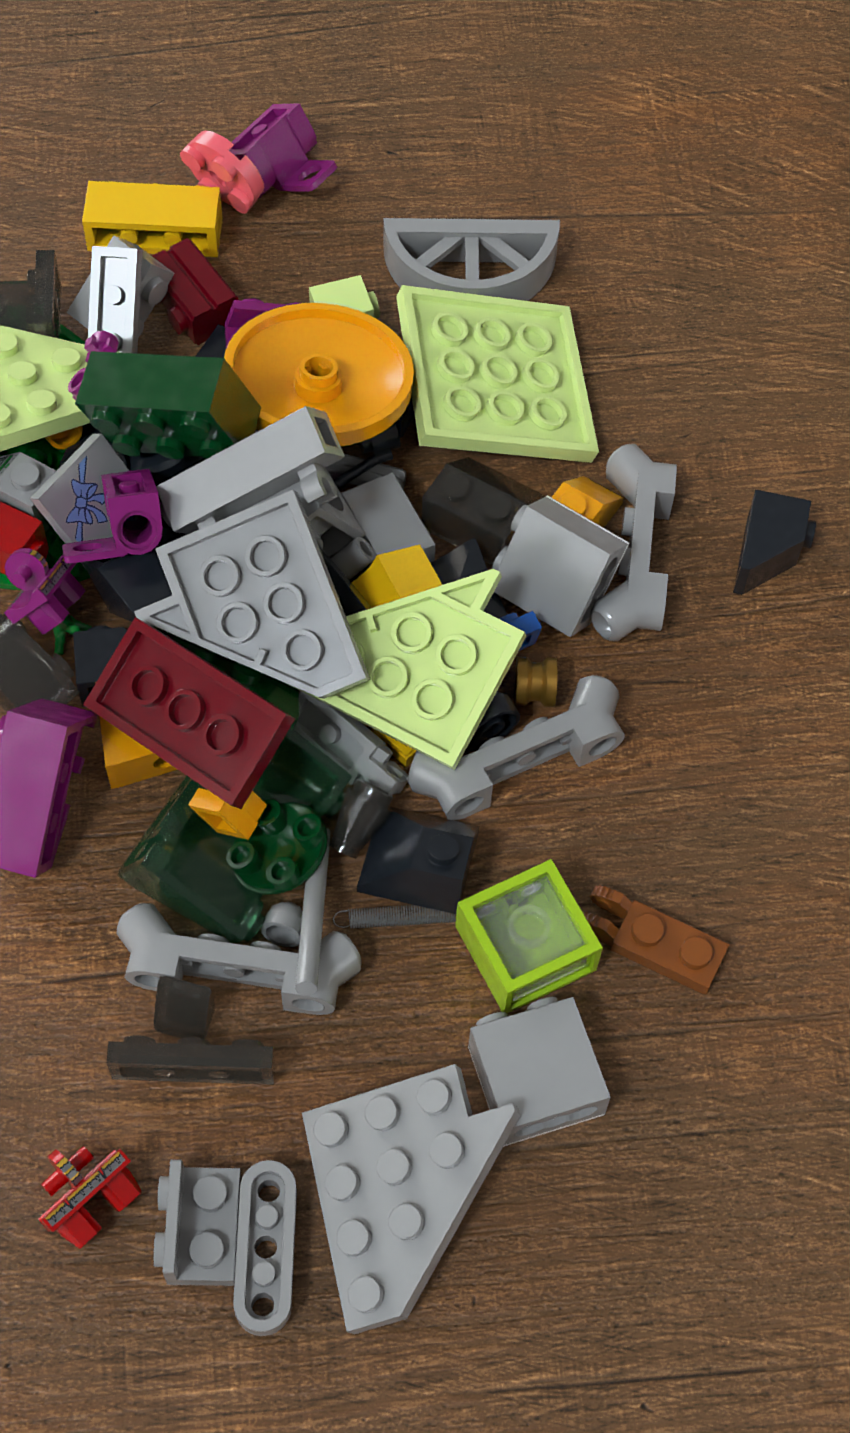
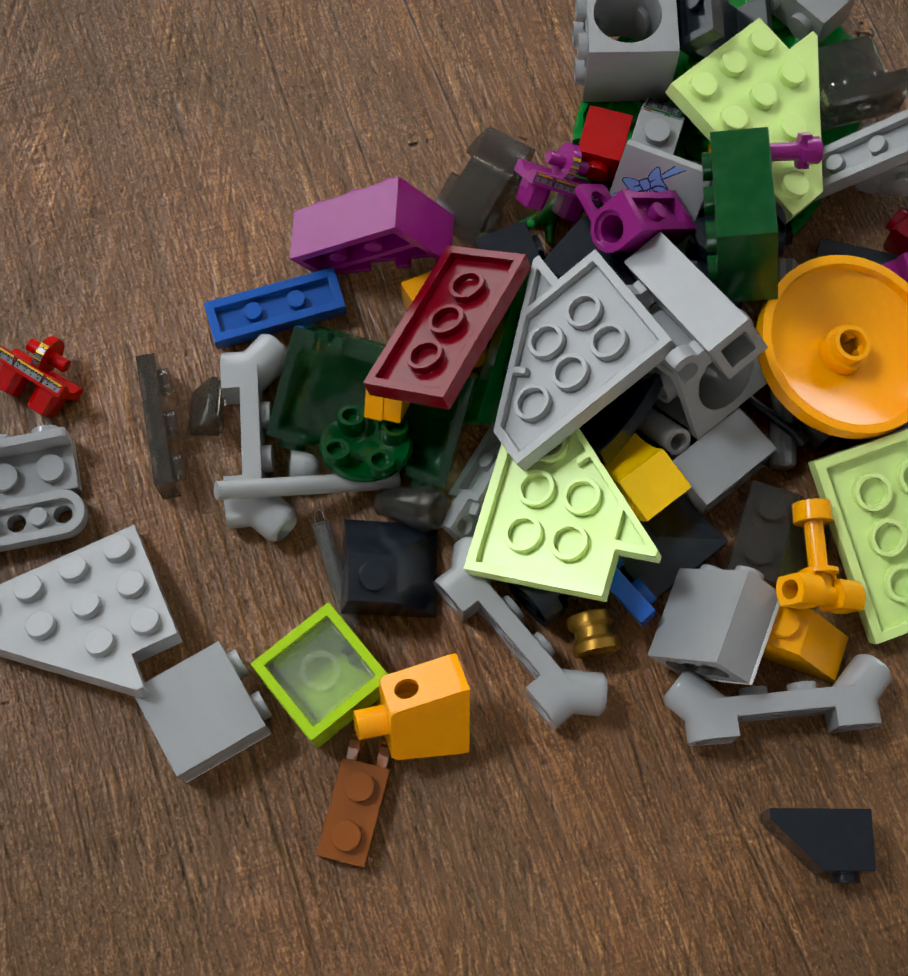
camera: 80 degrees right, 10 degrees up
(83, 914) = (275, 307): none -> blue plate
(548, 466) = (818, 582): none -> light orange bar
(589, 839) = (421, 711): none -> light orange torso

